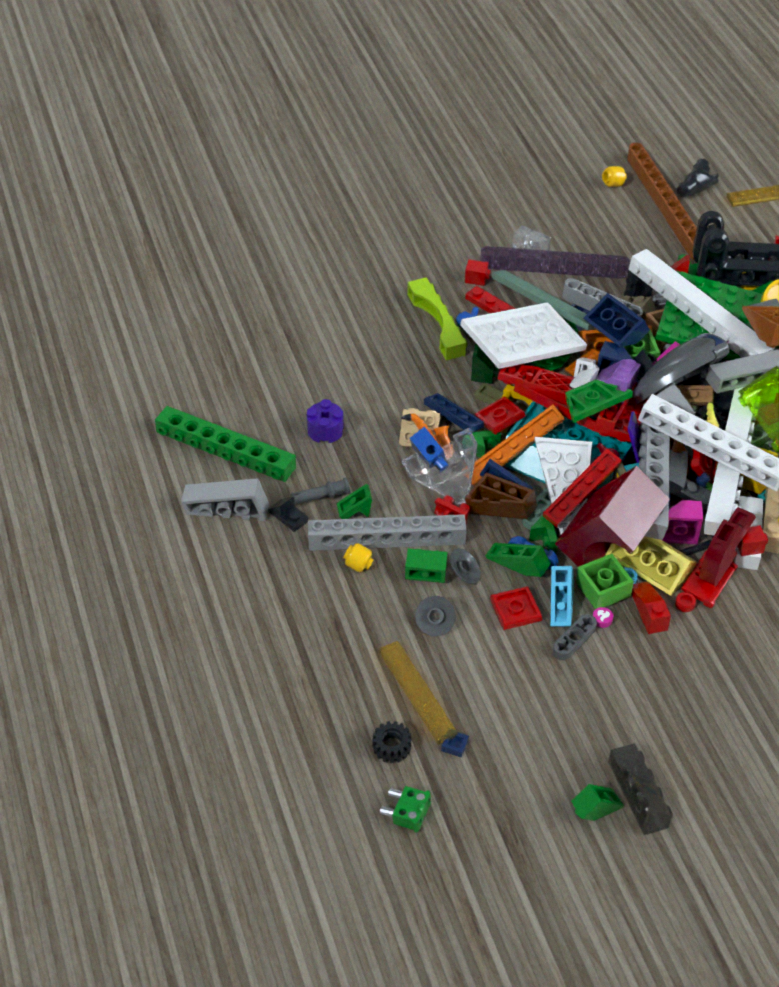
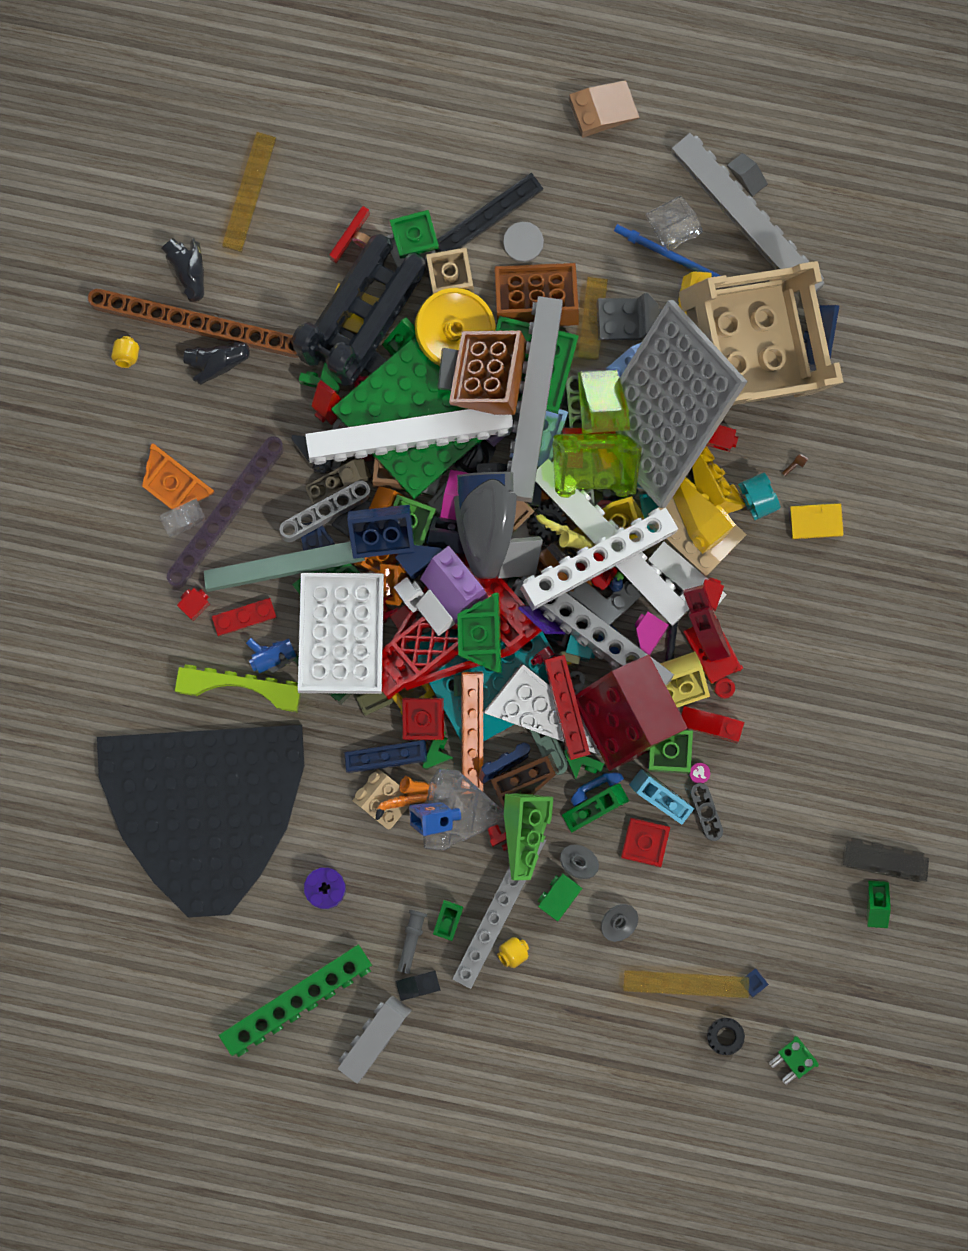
camera: 55 degrees left, 35 degrees up
(336, 340) = (203, 807): none -> black piece
(467, 504) = (524, 825): none -> bright green wedge
(553, 227) = (171, 481): none -> orange wing
(563, 366) = (386, 611): none -> dark red piece
(651, 215) = (215, 360): none -> black animal

